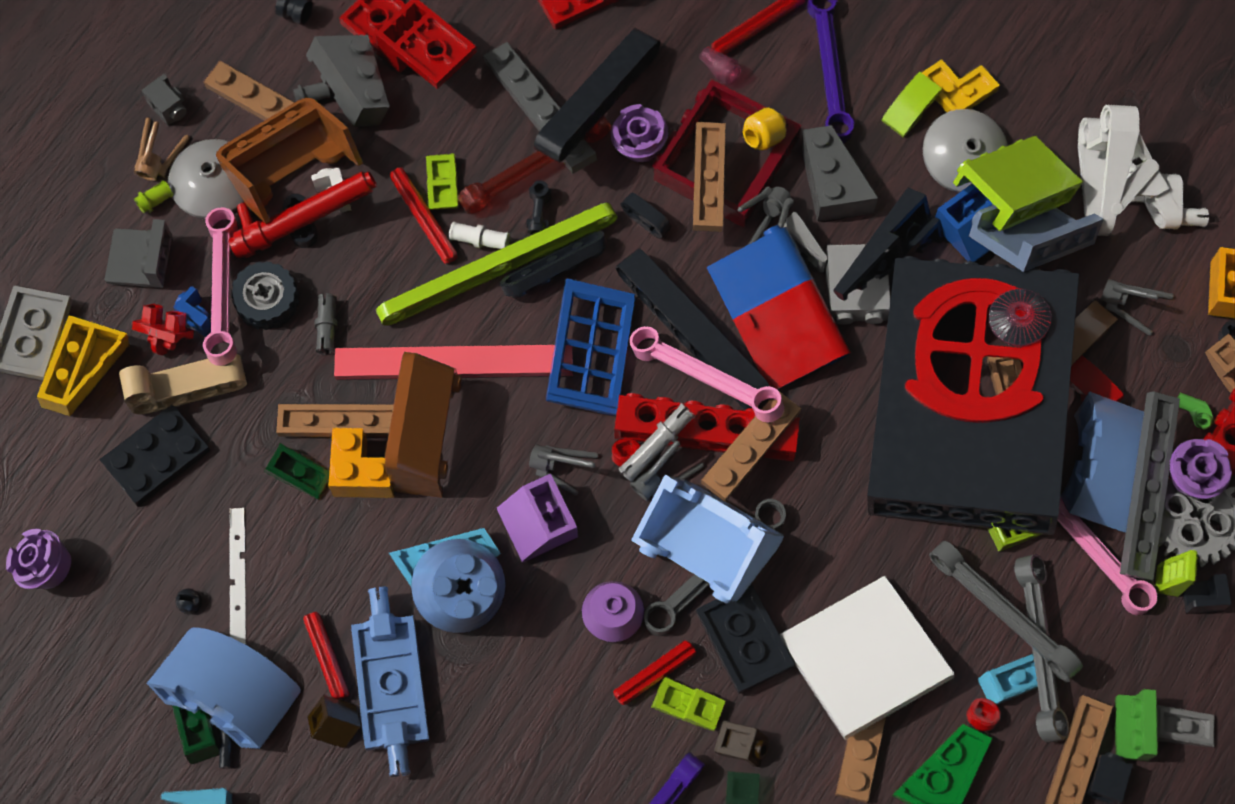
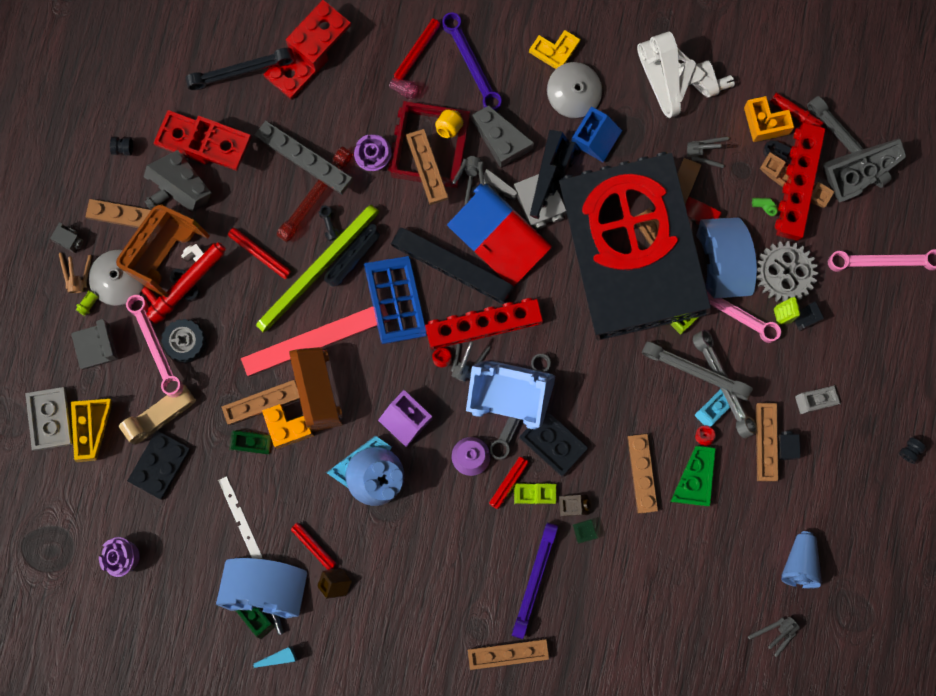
camera: 20 degrees left, 10 degrees up
(162, 333) = (130, 388): red hips -> none
(188, 607) = (219, 549): black hinge -> none
(195, 315) = (146, 371): blue bracket -> none
(326, 324) = (228, 344): dark grey pin -> none
(389, 682) = (357, 547): medium blue plate -> none
(442, 181) = (262, 227): lime slope -> none
(479, 236) = (299, 254): white pin -> none
(546, 458) = (395, 378): dark grey plant -> none
(596, 95) = (337, 138): black beam -> none
(645, 215) = (396, 203): black beam -> none
(666, 432) = (463, 338): light grey pin -> none
(707, 374) = (471, 292): bright pink piece -> none
(748, 450) = (515, 327): medium nougat plate -> none
(866, 657) = (627, 428): white tile -> none
(911, 104) = (531, 71): lime slope -> none
(1019, 330) = (649, 202): dish -> none
(1020, 180) = (615, 100): lime panel -> none
(1036, 239) = (634, 131): sand blue panel -> none
(1136, 726) = (793, 409): bright green bracket -> none
(1149, 486) = (755, 265): dark grey plate -> none
(1200, 468) = (781, 245): medium lavender cone -> none

